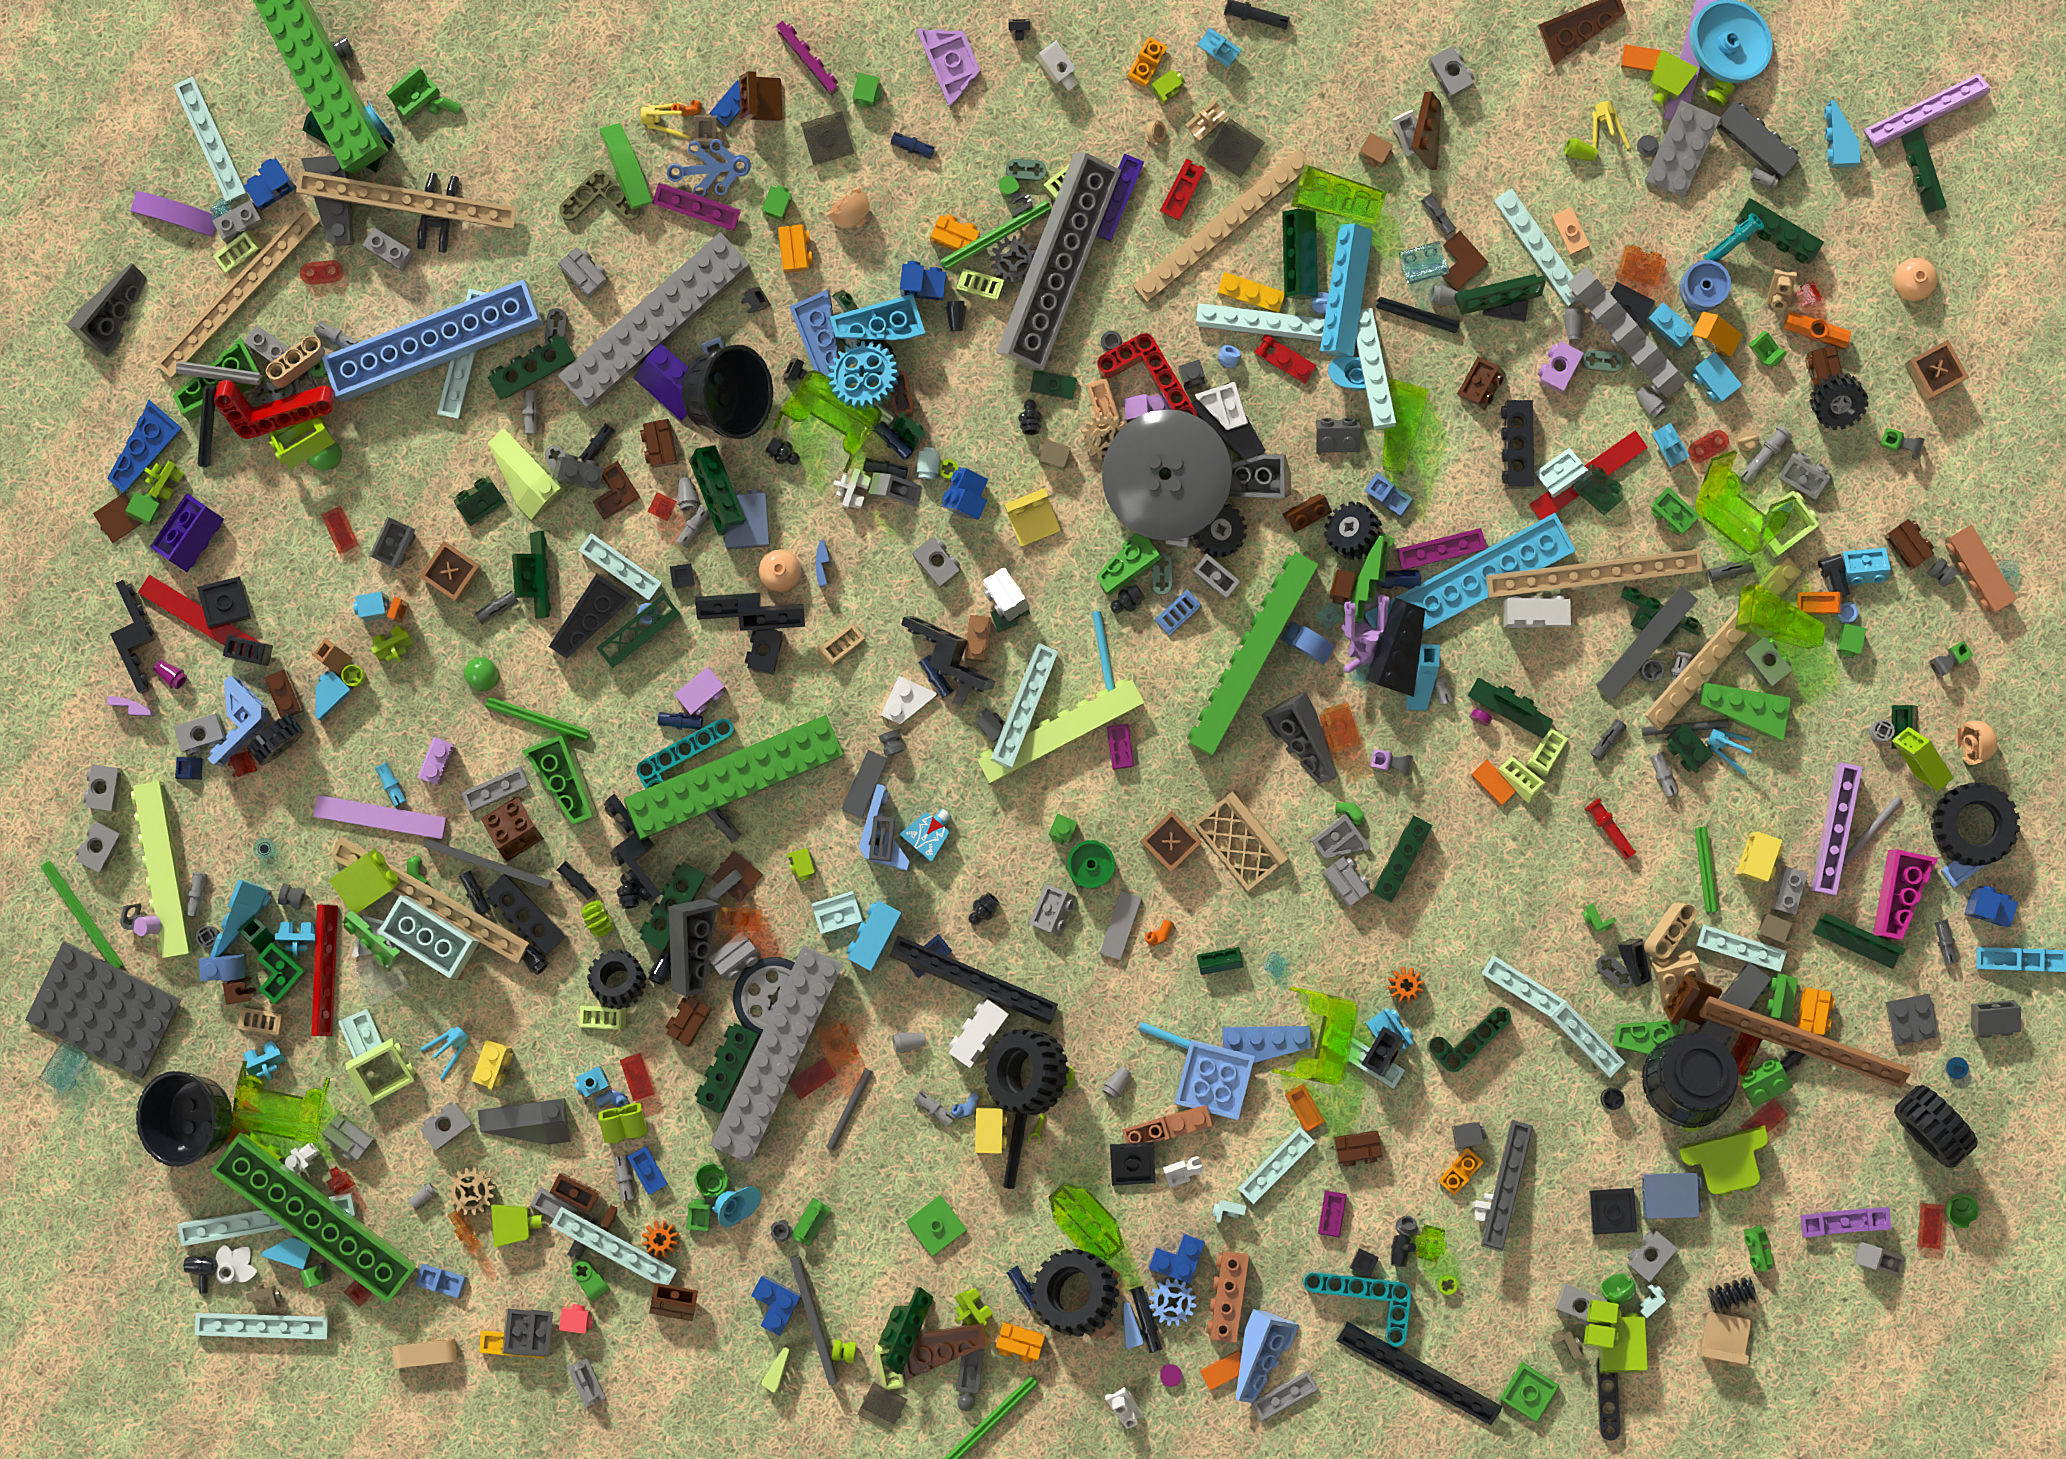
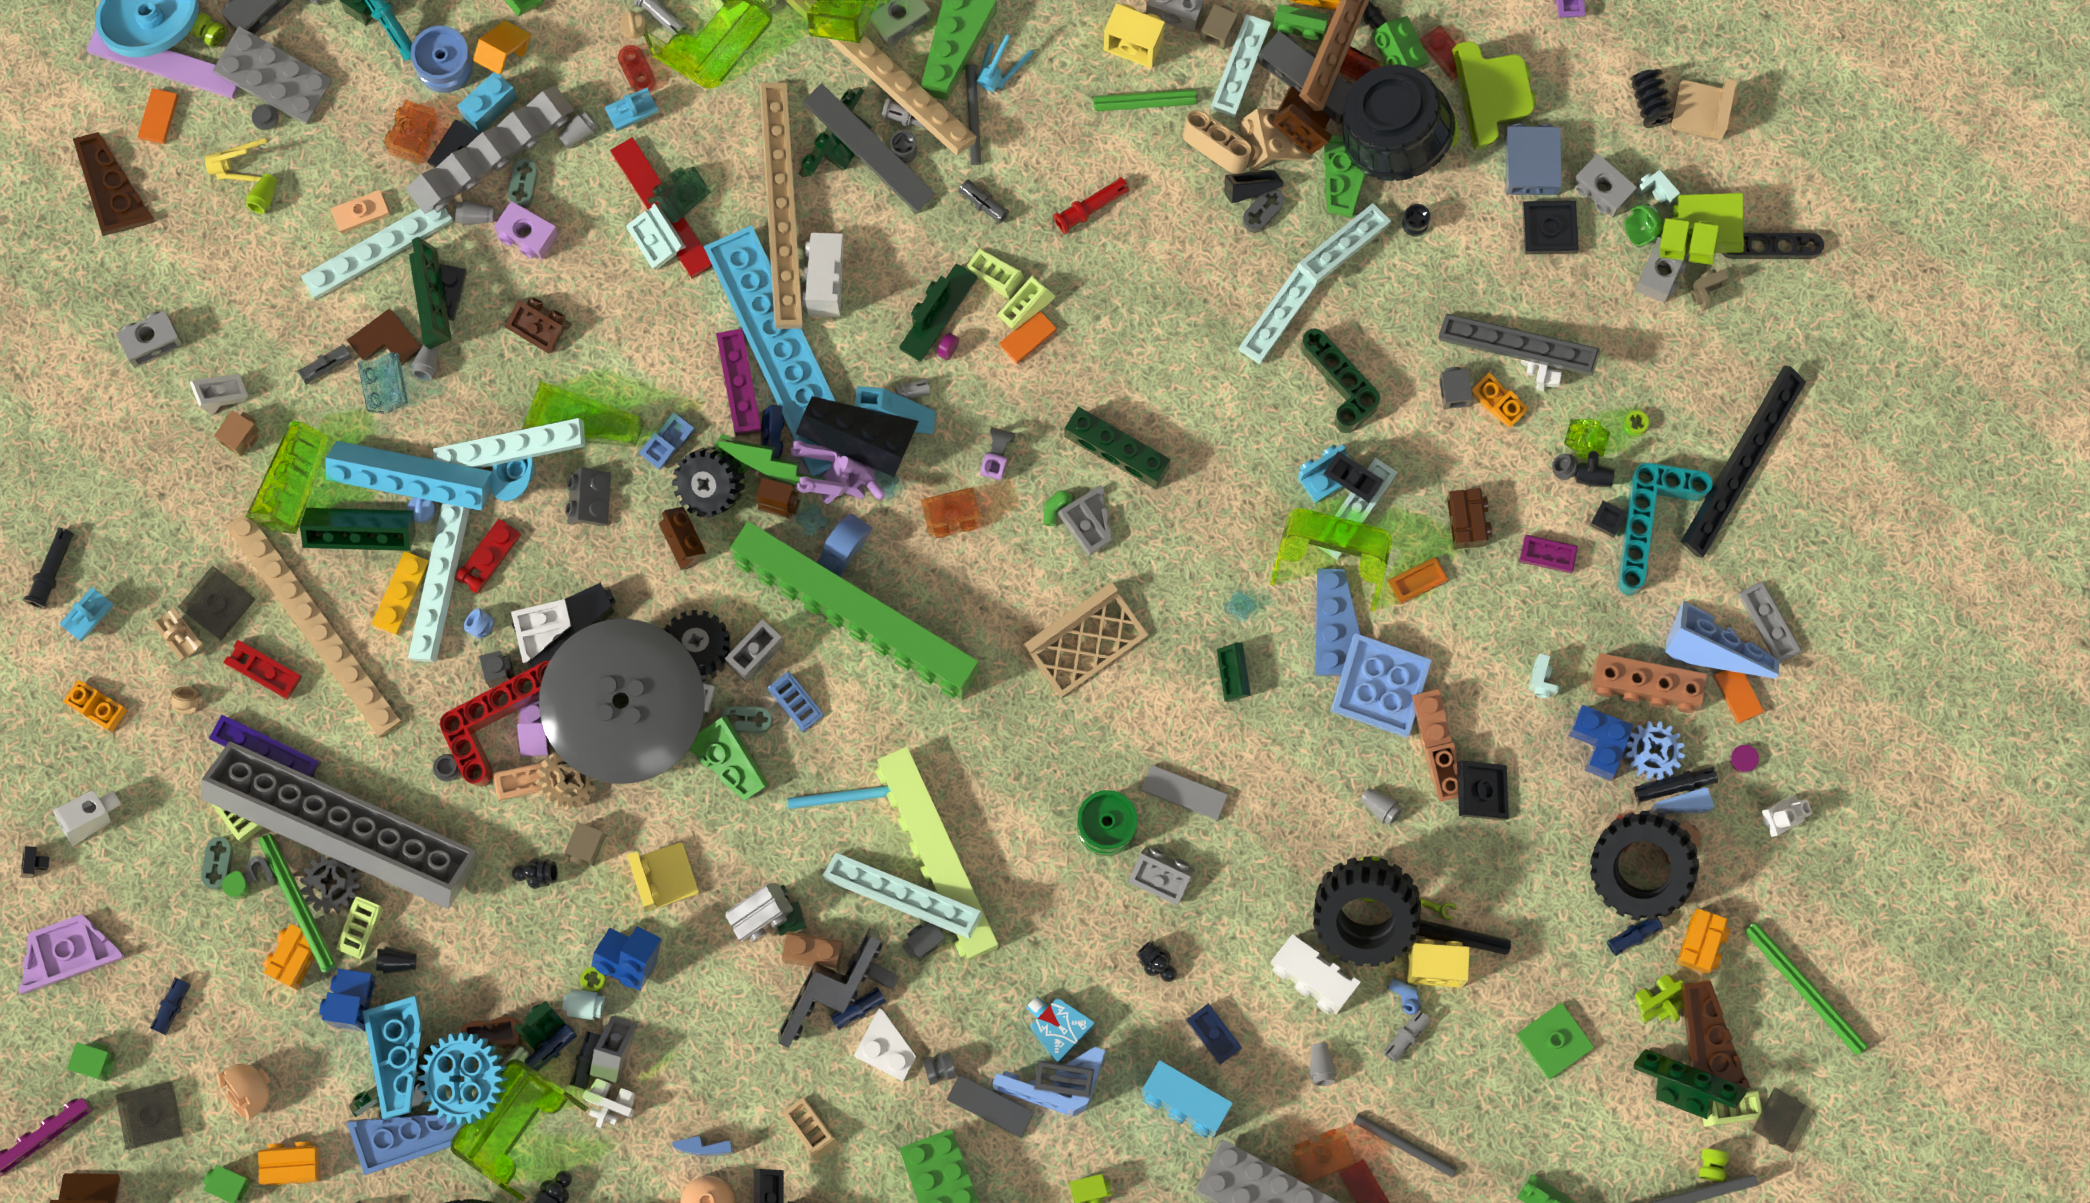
camera: 85 degrees left, 10 degrees down
(794, 370) = (448, 1171): black tile -> none
(836, 912) = (1153, 1149): light aqua plate -> none
(927, 552) = (702, 1014): light grey brick -> none
(969, 1378) = (1750, 1007): dark grey plate -> none
(973, 980) = (1247, 977): black plate -> none
(1053, 385) = (495, 843): dark green plate -> none
(1062, 829) = (1060, 856): bright green brick -> none
(1086, 1221) = (1555, 850): clear neon green wedge -> none
(1120, 746) = (960, 781): magenta plate -> none
(1128, 598) = (775, 763): black piece -> none
(1161, 935) = (1198, 743): orange arm -> none
(1164, 1035) = (1323, 745): medium azure bar -> none
(1168, 86) = (129, 680): lime brick -> none
(1170, 841) = (1083, 723): medium nougat brick -> none
(1179, 1172) = (1494, 733): white plate -> none
(1261, 477) = (633, 586): dark grey wedge -> none
(1276, 1165) = (1487, 617): light aqua plate -> none
(1300, 729) = (950, 560): dark grey wedge -> none
(1346, 881) = (1141, 515): light grey brick -> none
(1401, 991) = (1271, 441): orange gear -> none
(1417, 314) = (446, 395): black axle -> none
(1426, 134) = (219, 369): reddish brown wing -> none
(1524, 411) = (605, 275): black brick -> none
(1529, 1392) = (1766, 335): bright green plate -> none
(1592, 917) = (1197, 230): bright green bracket -> none
(1664, 774) = (1028, 140): light grey pin -> none
(1670, 77) = (183, 83): lime torso -> none
(1674, 511) = (712, 111): bright green bracket -> none
(1689, 747) = (997, 110): dark green bracket -> none
(1716, 378) = (555, 54): medium azure brick -> none
(1731, 570) = (787, 51): dark grey pin -> none
(1760, 1258) = (1607, 65): bright green hinge -> none

